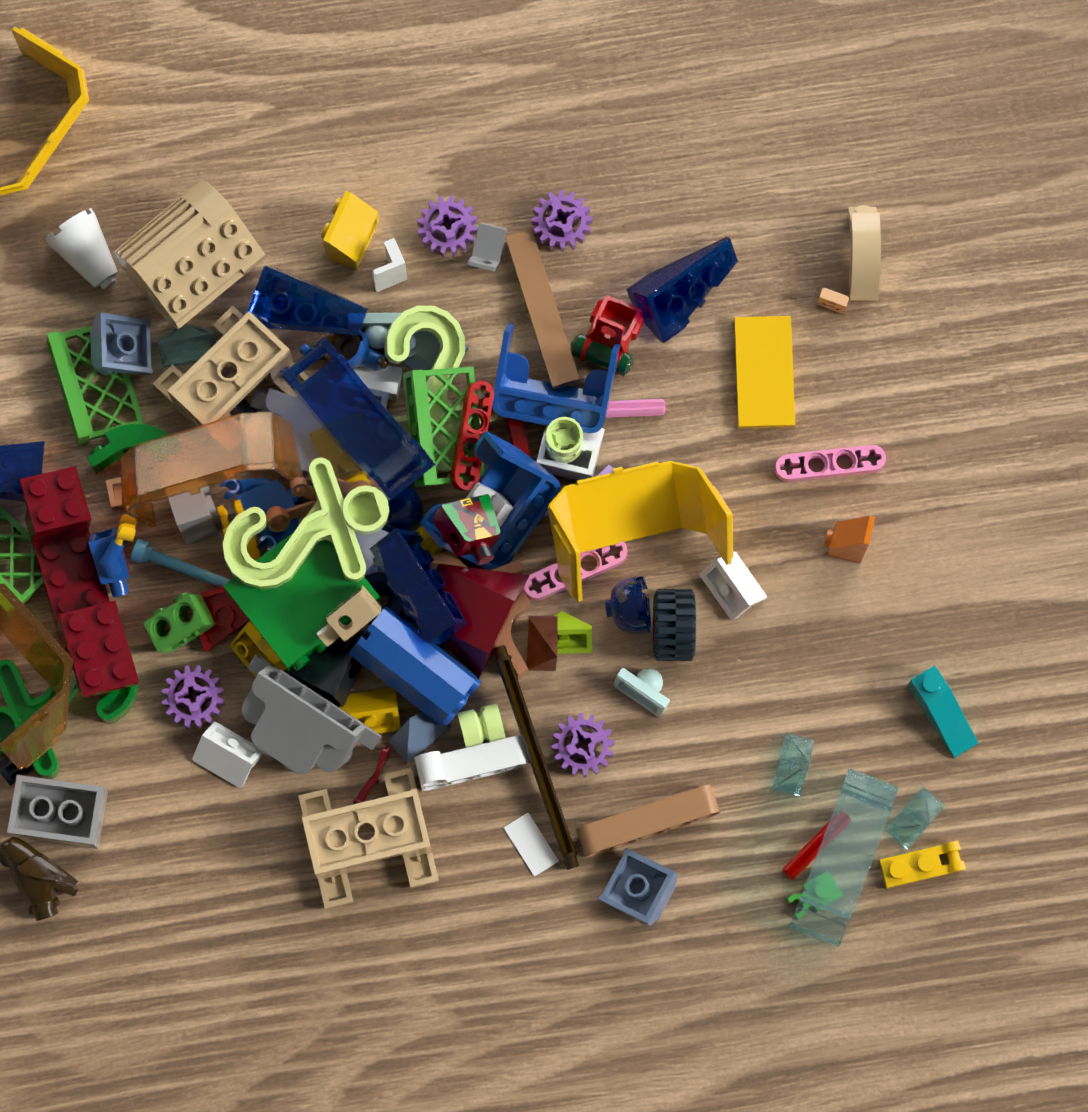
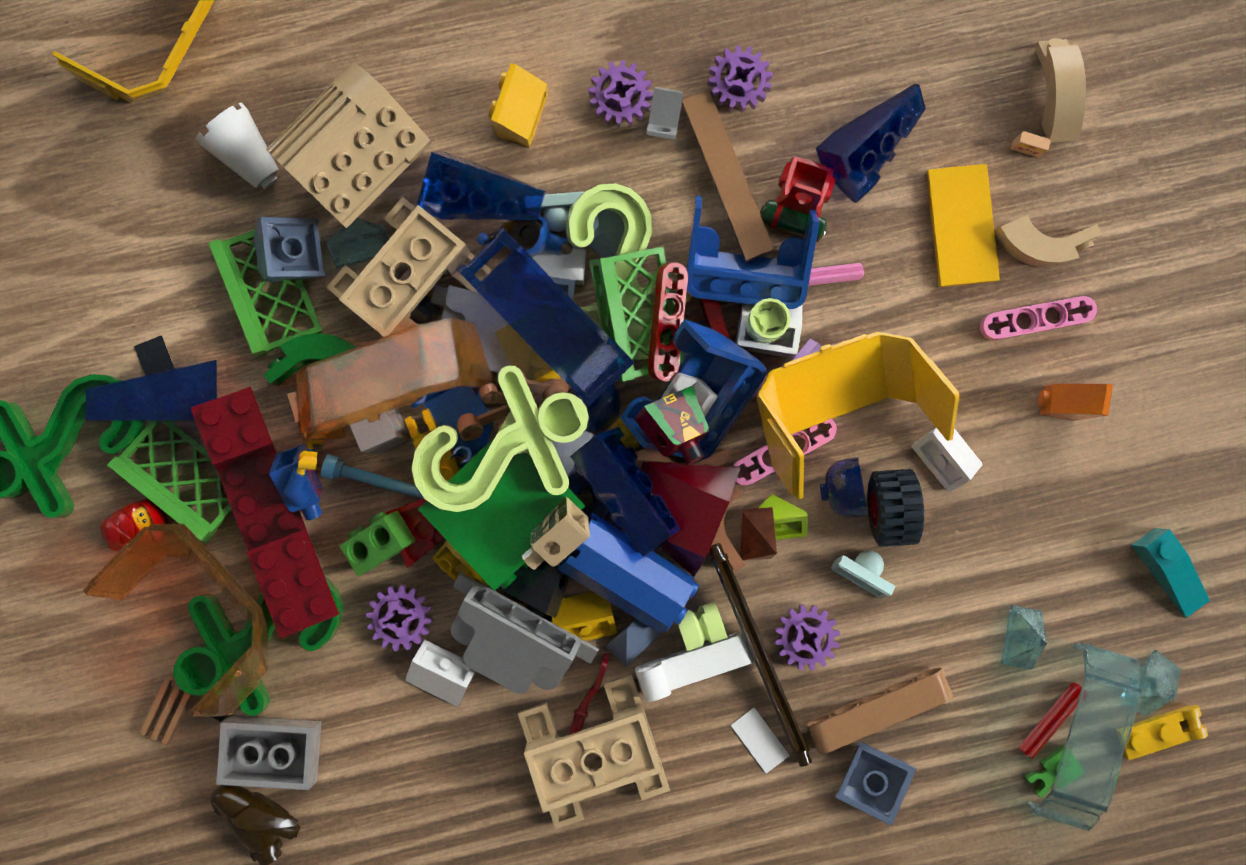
camera: 10 degrees left, 10 degrees up
(394, 271) = (569, 147): white panel -> none
(839, 400) = (1033, 248): none -> tan arch

